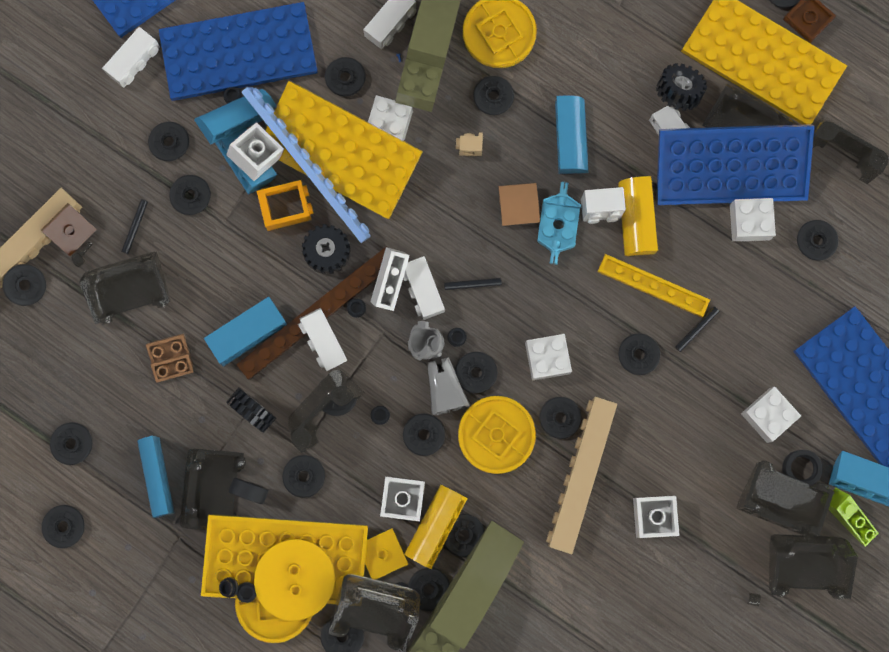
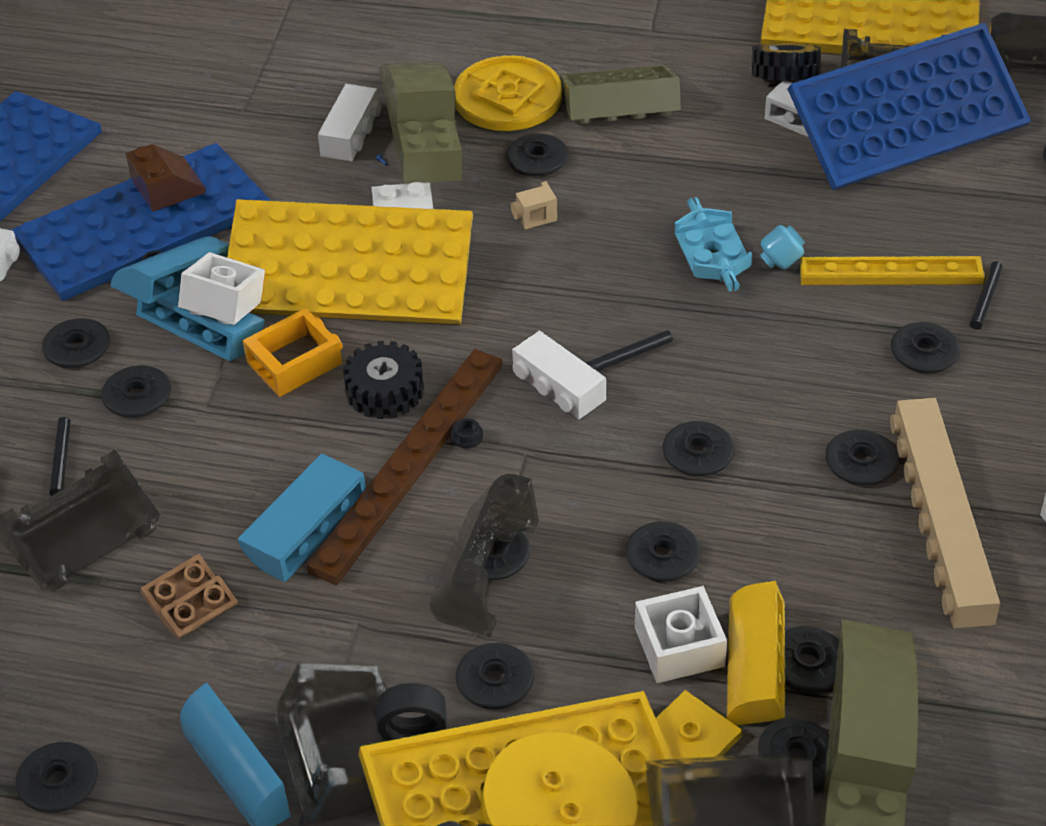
camera: 20 degrees left, 35 degrees down
(251, 410) = (363, 597): black wheel -> none
(258, 30) = (162, 176): none -> reddish brown slope
(302, 157) = (318, 289): light blue plate -> none
(322, 339) = (434, 475): white brick -> none
(340, 66) = (328, 189): black wheel -> none
(380, 415) = (578, 549): black plate -> none
(389, 279) = (502, 369): white brick -> none
(425, 341) = (598, 429): light grey helmet -> none
(445, 389) = (665, 480): light grey piece -> none
(456, 337) = (642, 416): black plate -> none
(496, 434) = (778, 509): yellow plate -> none
(519, 204) = (643, 244): medium nougat slope -> none
(548, 357) = (796, 388): white brick -> none
(568, 61) = (621, 93): none -> olive slope
(571, 134) = (668, 157): dark azure brick -> none
(597, 245) = (782, 247): none -> medium azure head
(603, 205) = (762, 198): white brick -> none
(639, 217) = (819, 204): yellow brick -> none
(752, 219) = (974, 158): white brick -> none

